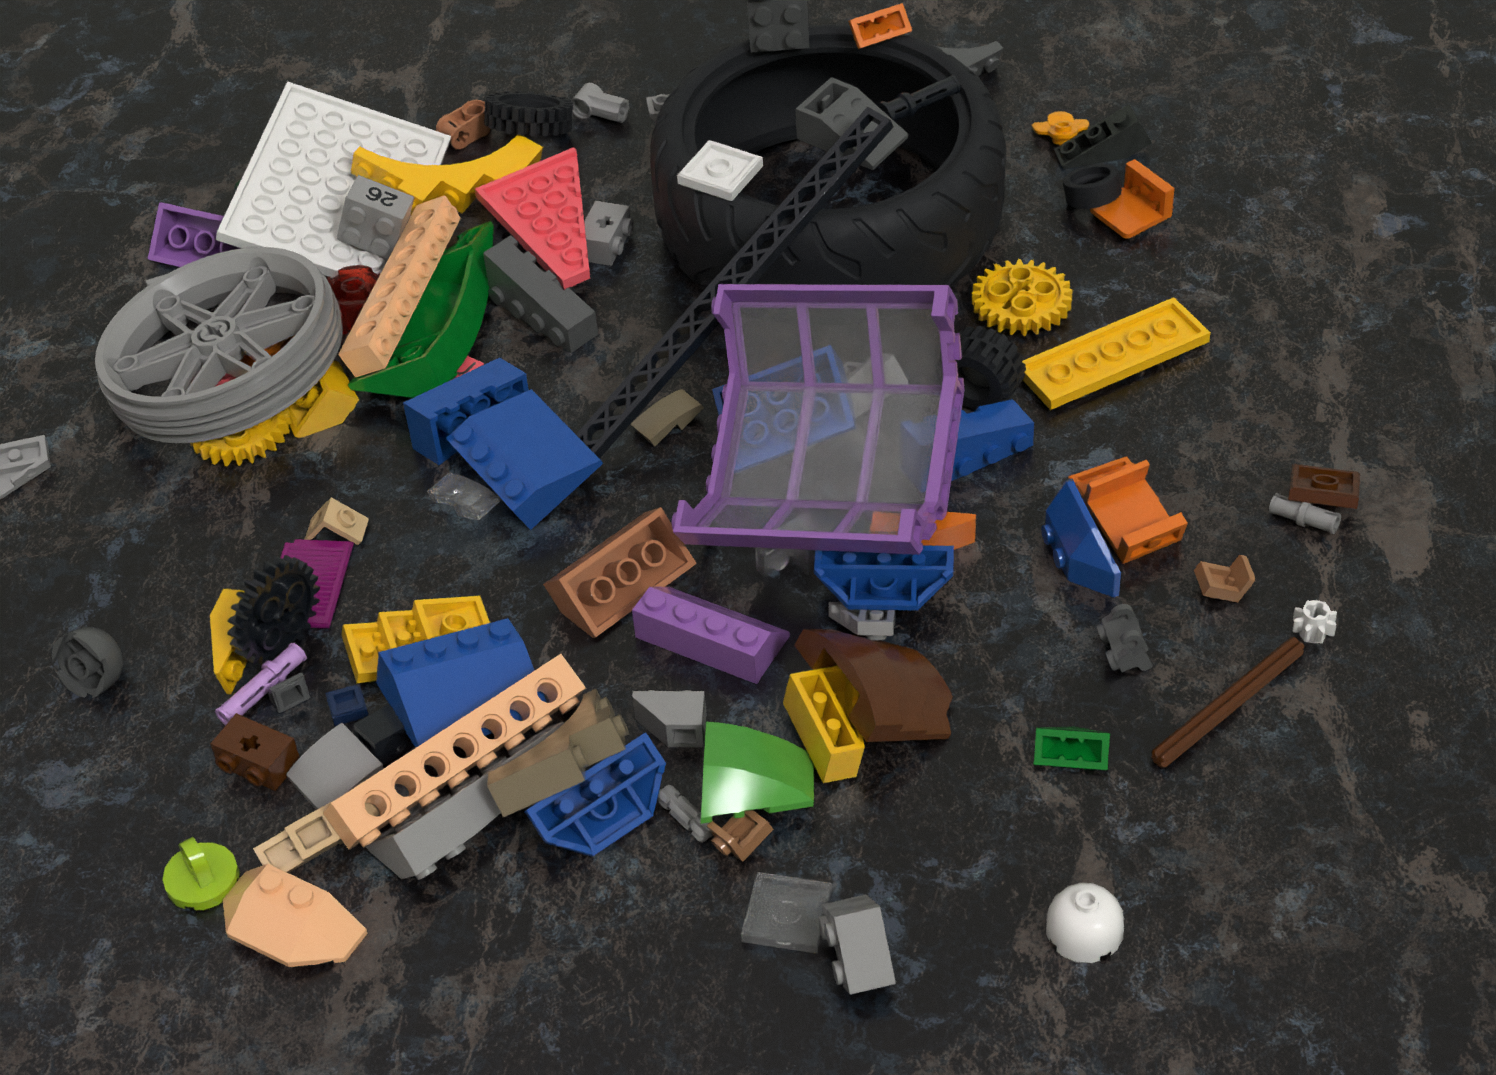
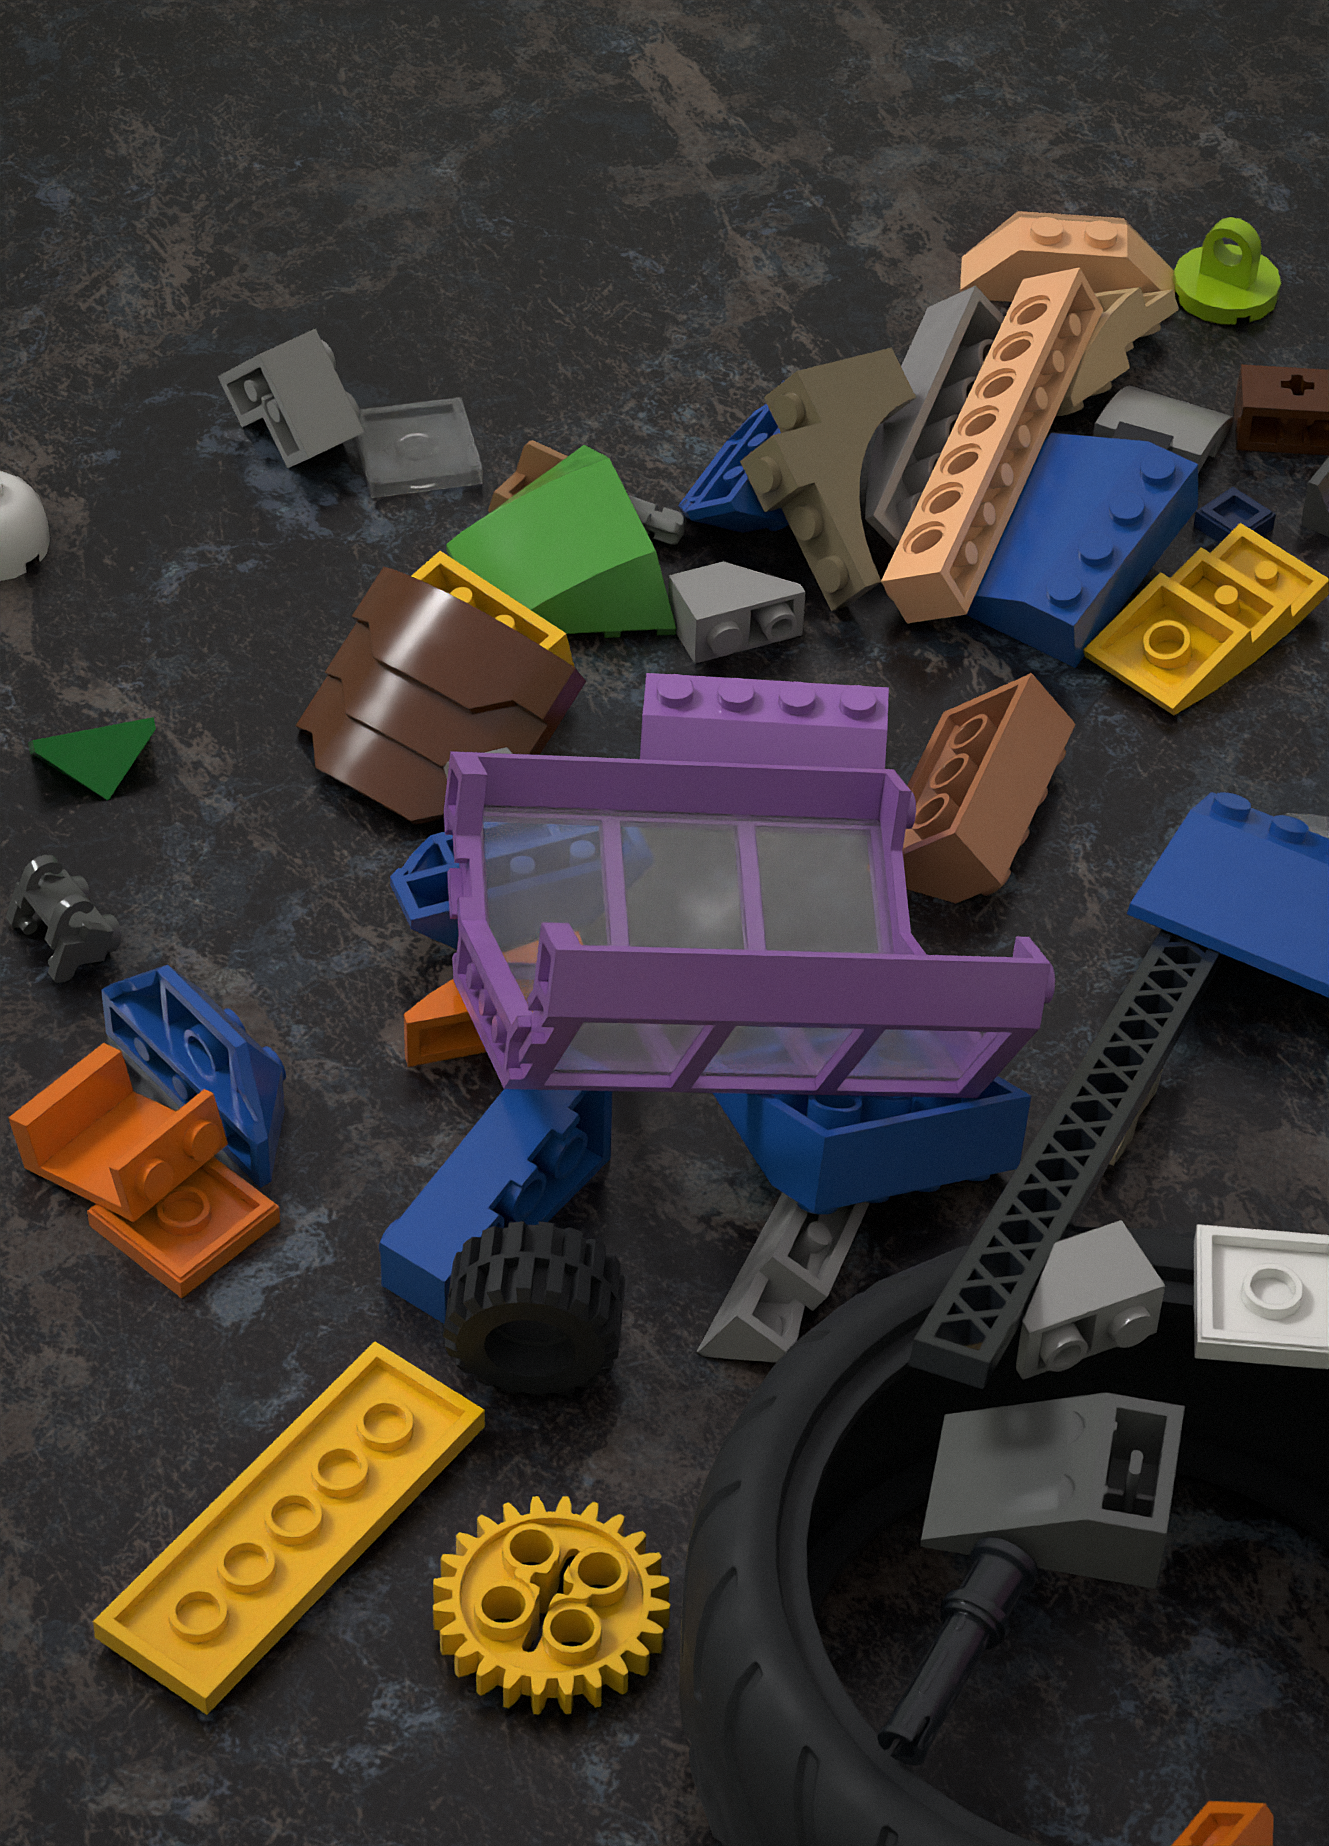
camera: 150 degrees right, 0 degrees up
(790, 168) = (1089, 1300): none -> light grey slope

